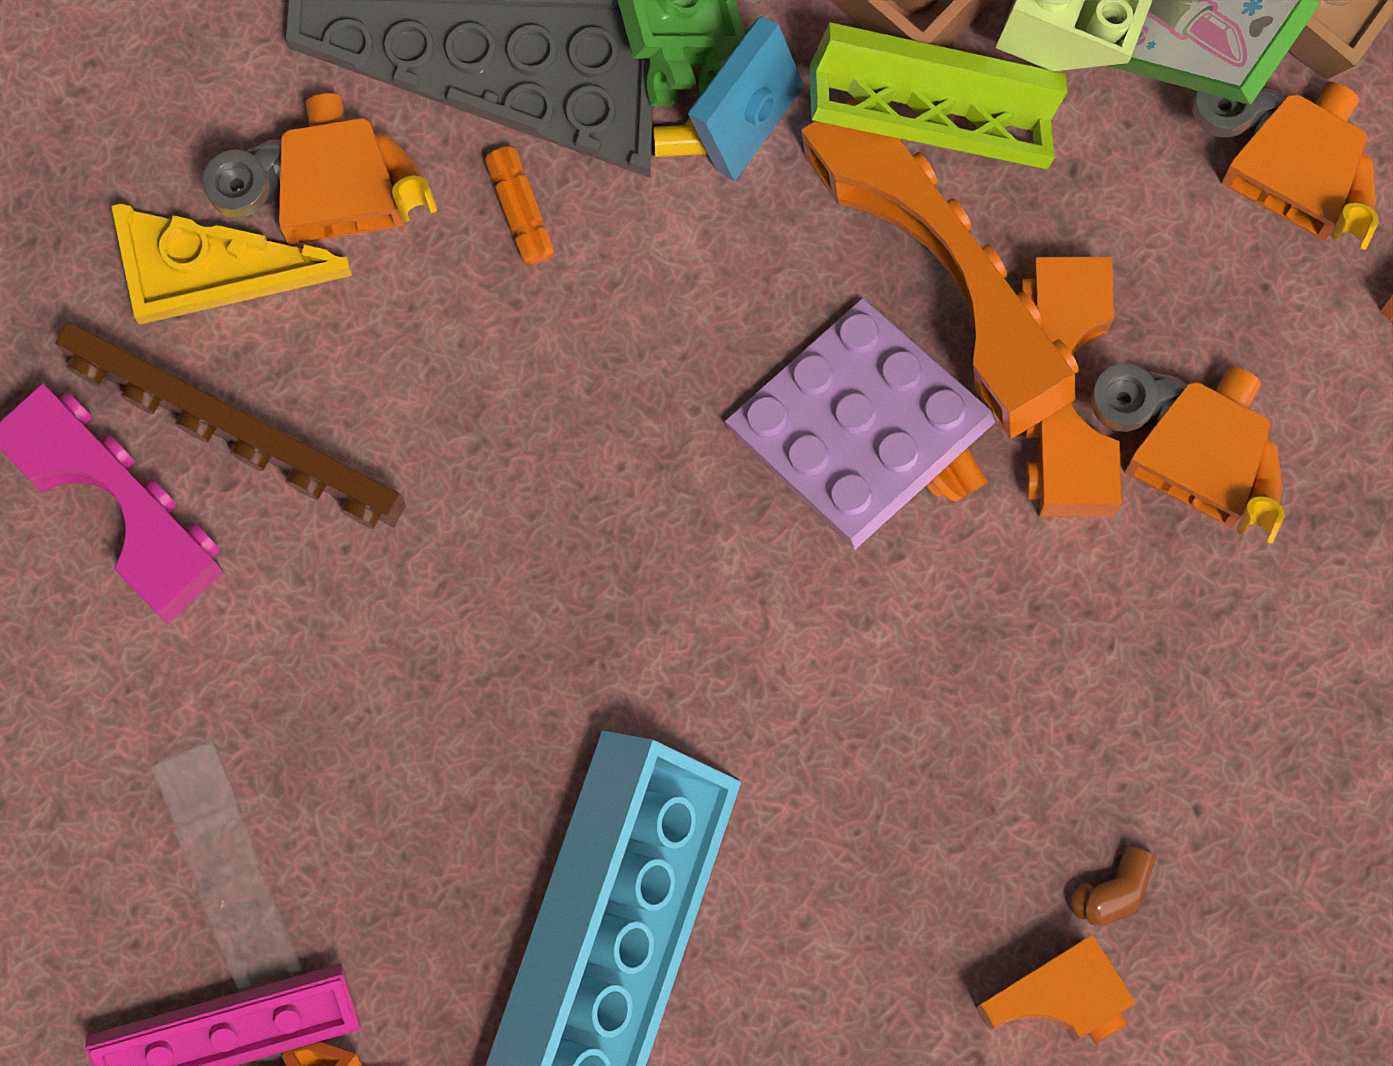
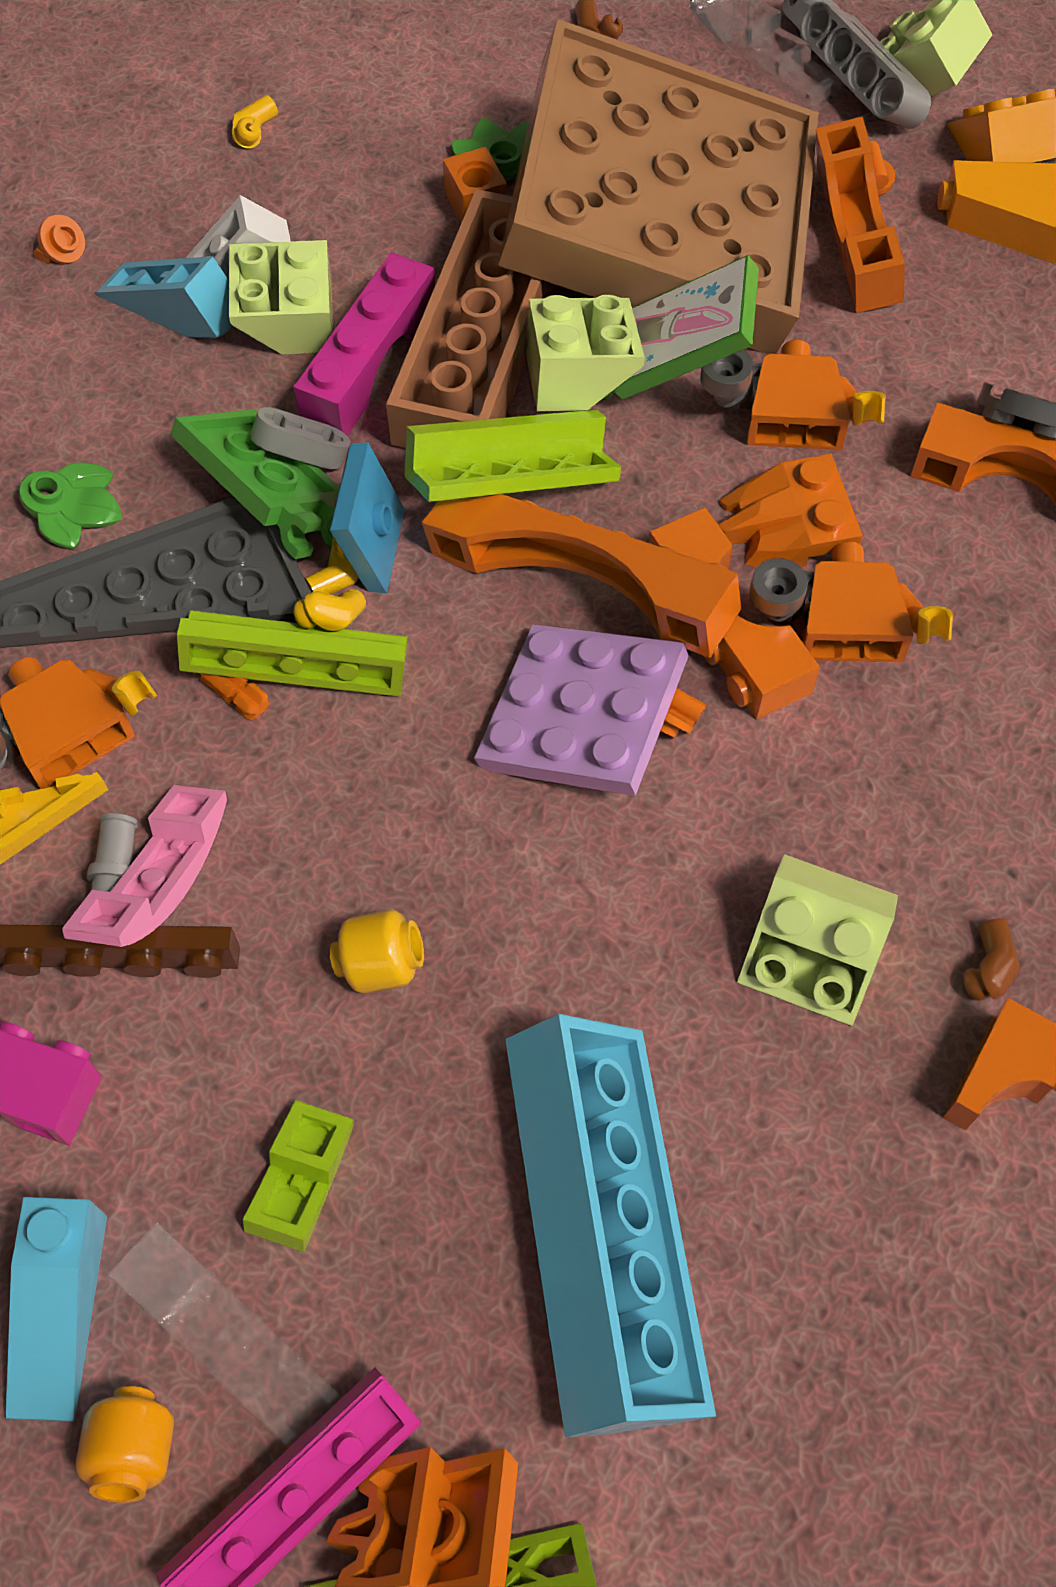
camera: 30 degrees left, 15 degrees down
(93, 767) = (51, 1305): none -> medium azure slope
(105, 918) = (125, 1445): none -> light orange head
(315, 373) = (113, 851): none -> light grey pin
(358, 757) = (298, 1176): none -> lime slope
(359, 399) = (159, 876): none -> bright pink slope
(528, 581) = (377, 951): none -> yellow head
(597, 223) = (291, 653): none -> lime fence
(658, 186) = (328, 610): none -> yellow arm
(956, 779) = (818, 939): none -> yellowish green slope
(1211, 300) = (791, 512): none -> orange plate

